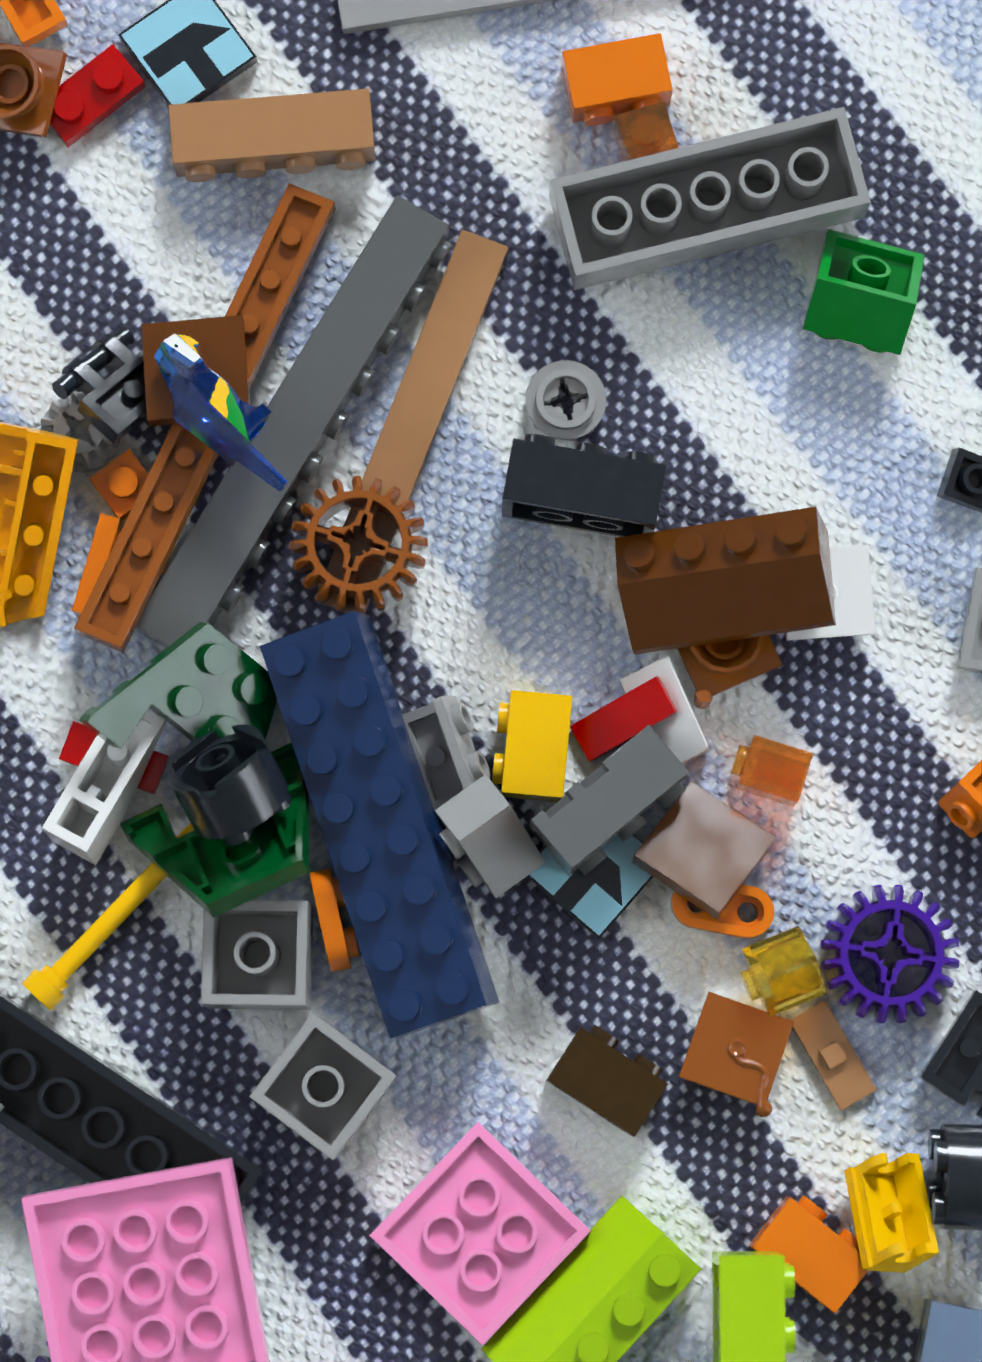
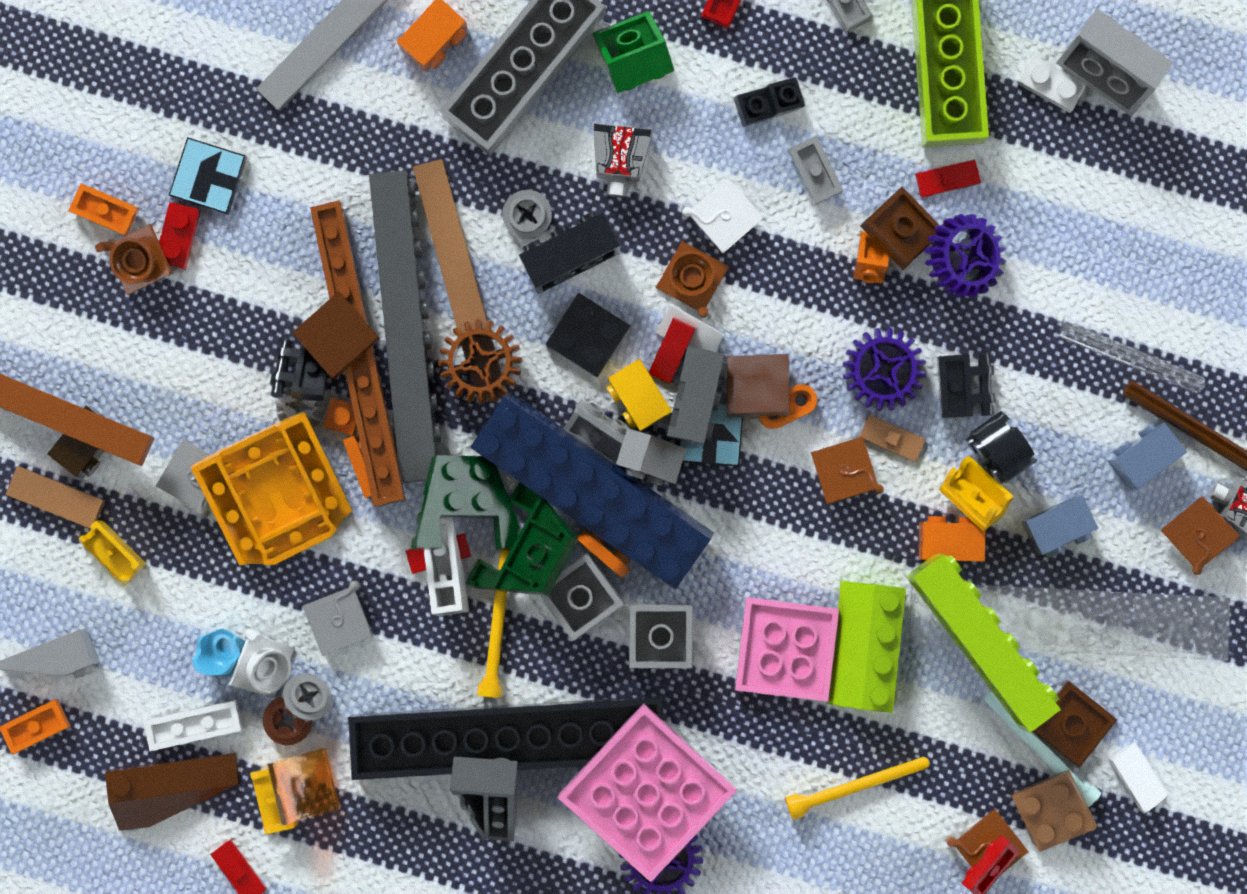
camera: 30 degrees left, 5 degrees up
(213, 408) = (360, 349): clear blue animal -> none
(229, 784) = (506, 525): black brick -> none
(272, 134) = (283, 188): medium nougat brick -> none
(527, 617) = (587, 335): none -> black plate
(608, 1080) = (794, 531): dark brown brick -> none
(644, 132) = (467, 53): clear orange brick -> none
(726, 580) = (672, 247): reddish brown slope -> none
(746, 412) = (620, 155): none -> torso
(771, 770) = (762, 322): clear orange brick -> none
(782, 972) = (839, 416): clear yellow brick -> none

